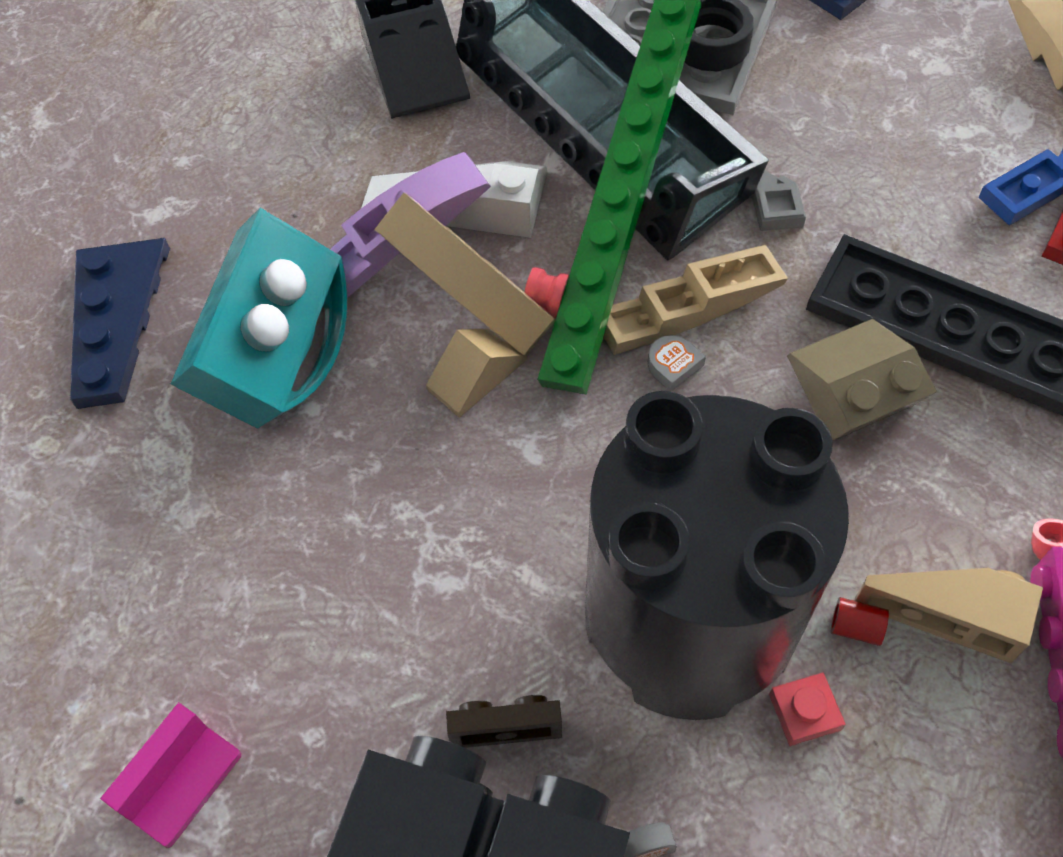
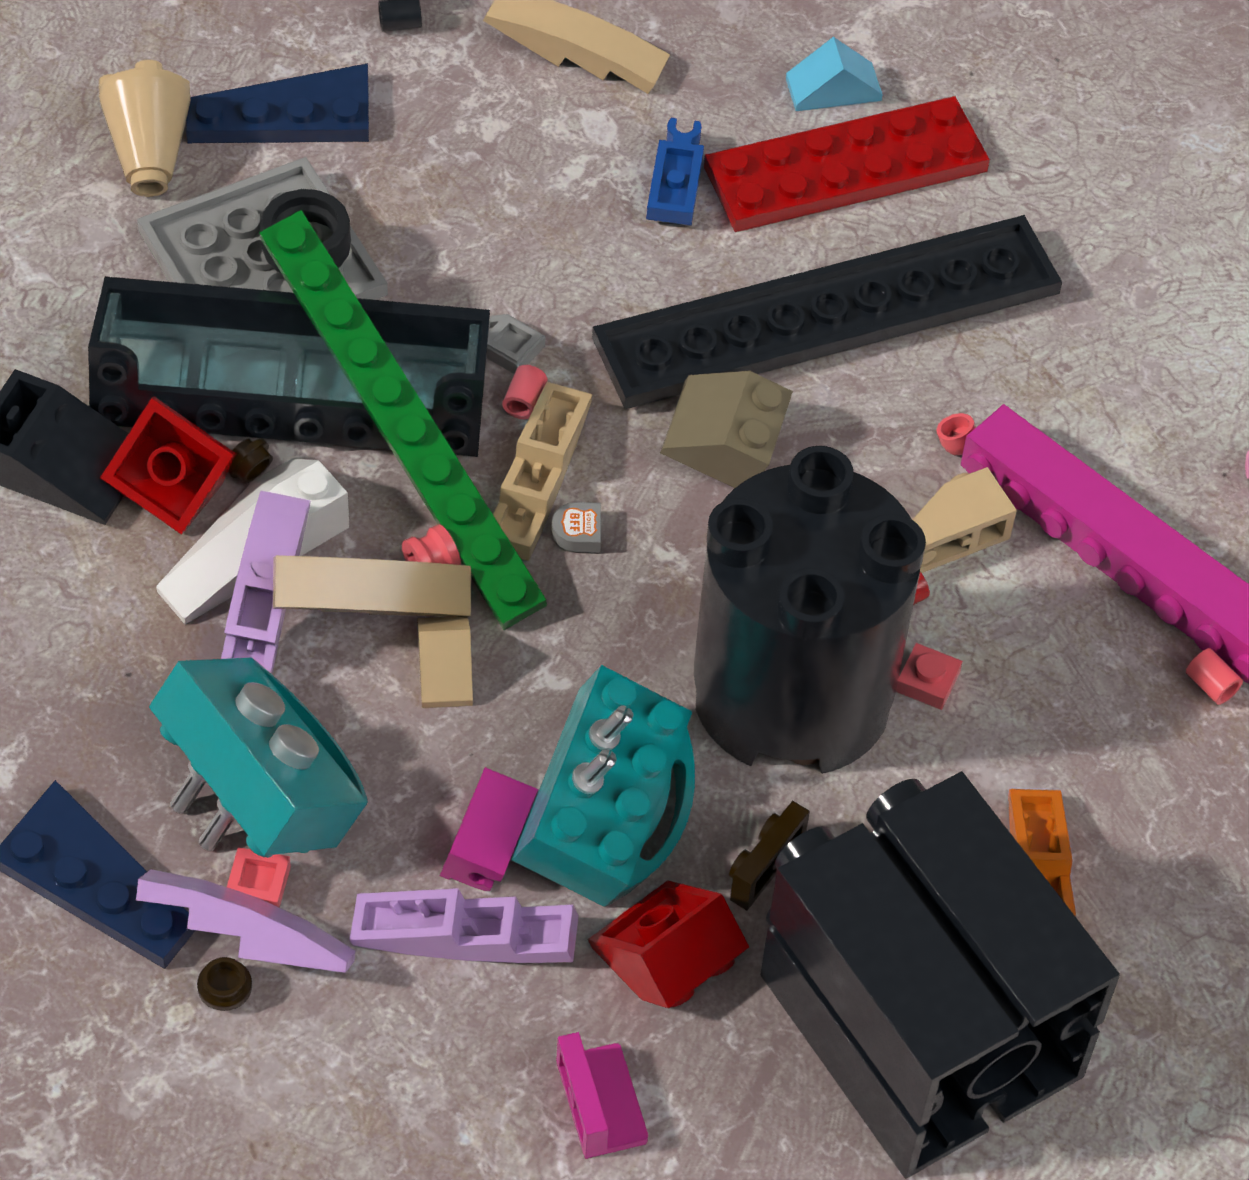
camera: 55 degrees left, 5 degrees down
(80, 449) = (224, 984): none -> dark brown plate
(131, 427) = (264, 929): none -> lavender slope
(179, 408) = (260, 875): none -> coral plate
(254, 564) = (457, 928): none -> lavender slope
(345, 505) = (489, 830): none -> dark pink hinge
(349, 708) = (671, 942): none -> red slope
(445, 558) = (610, 789): none -> teal piece
(453, 107) = (169, 466): none -> red slope
(515, 144) = (250, 460): none -> dark brown plate
(746, 237) = (524, 391): none -> coral hinge

